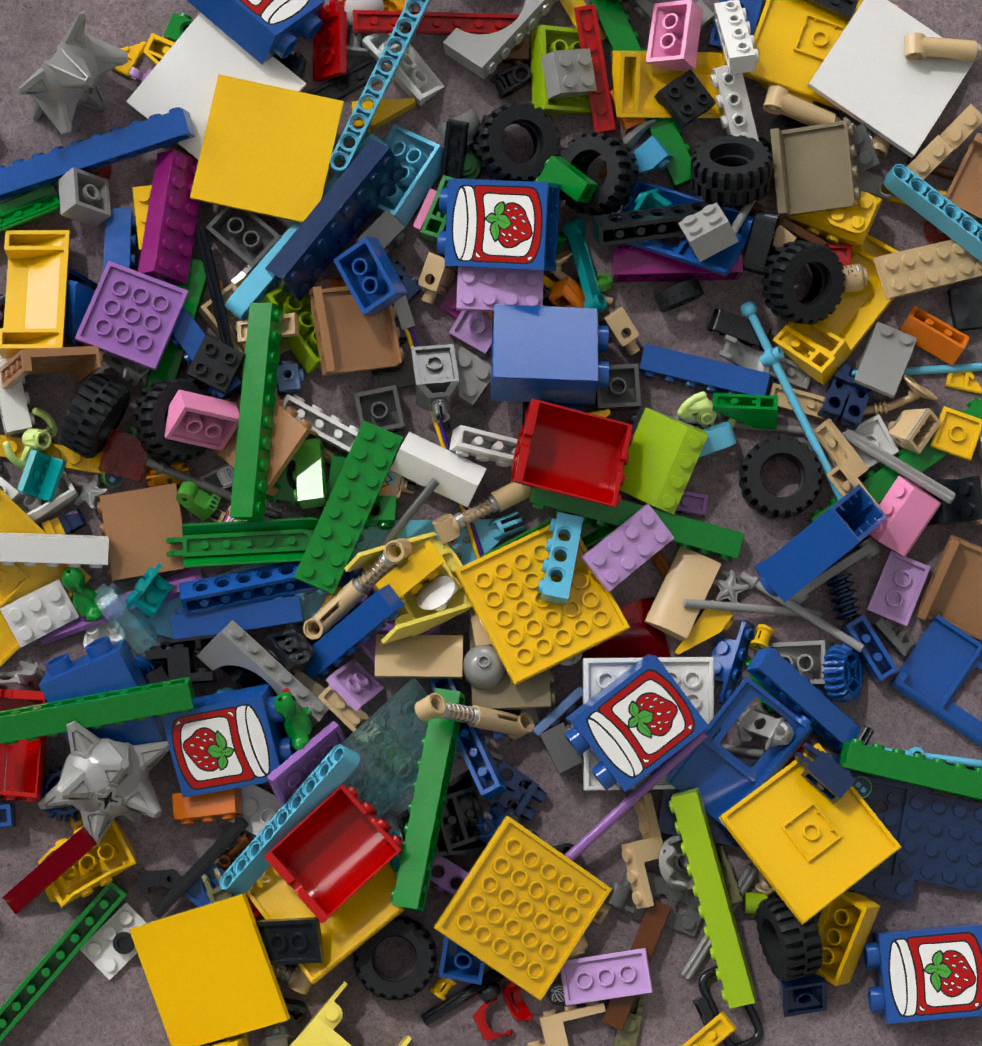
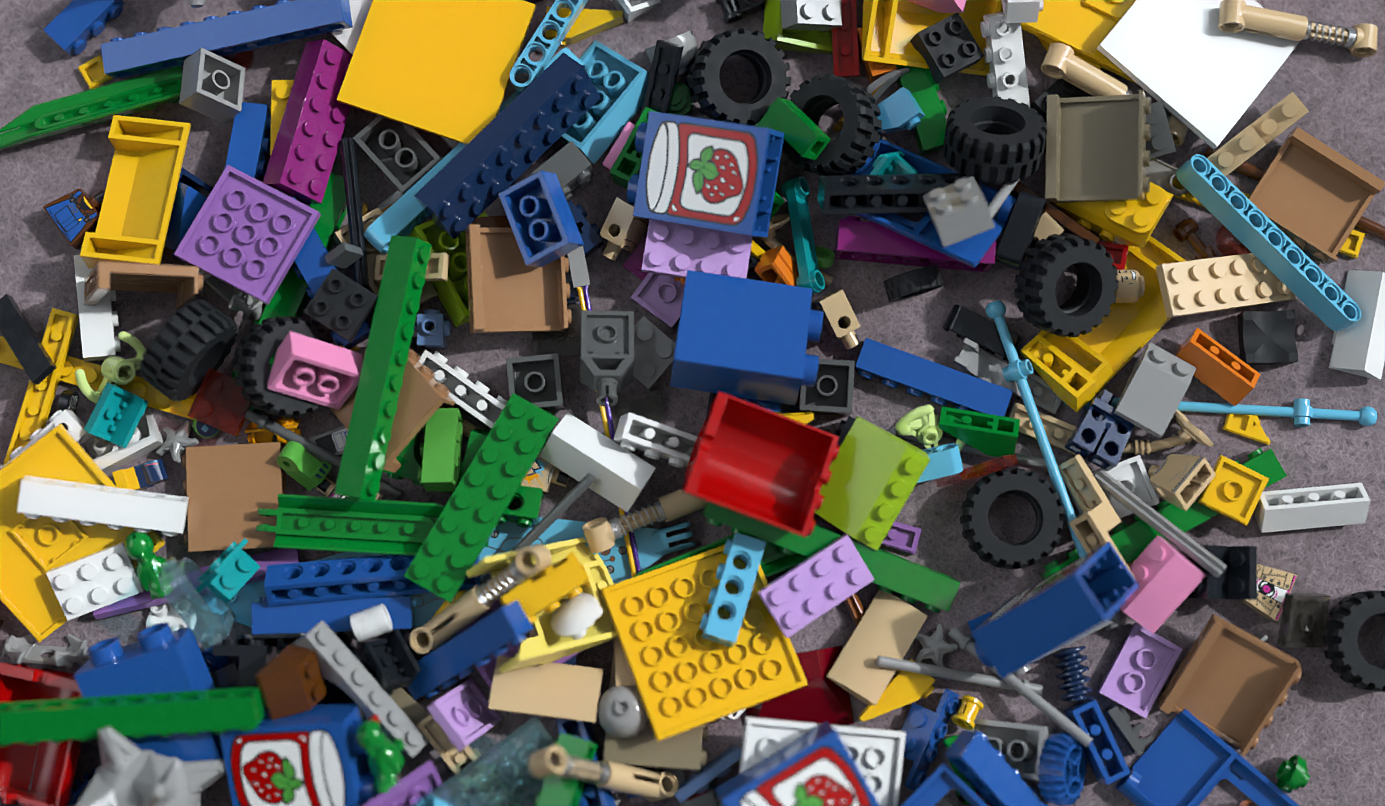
camera: 10 degrees right, 0 degrees up
(211, 324) = (343, 255): none -> dark grey tile
(214, 672) = (291, 682): none -> reddish brown slope
(270, 619) = (371, 622): none -> white piece
(756, 437) = (989, 467): none -> clear red tile
(898, 226) = (1187, 230): none -> reddish brown bar

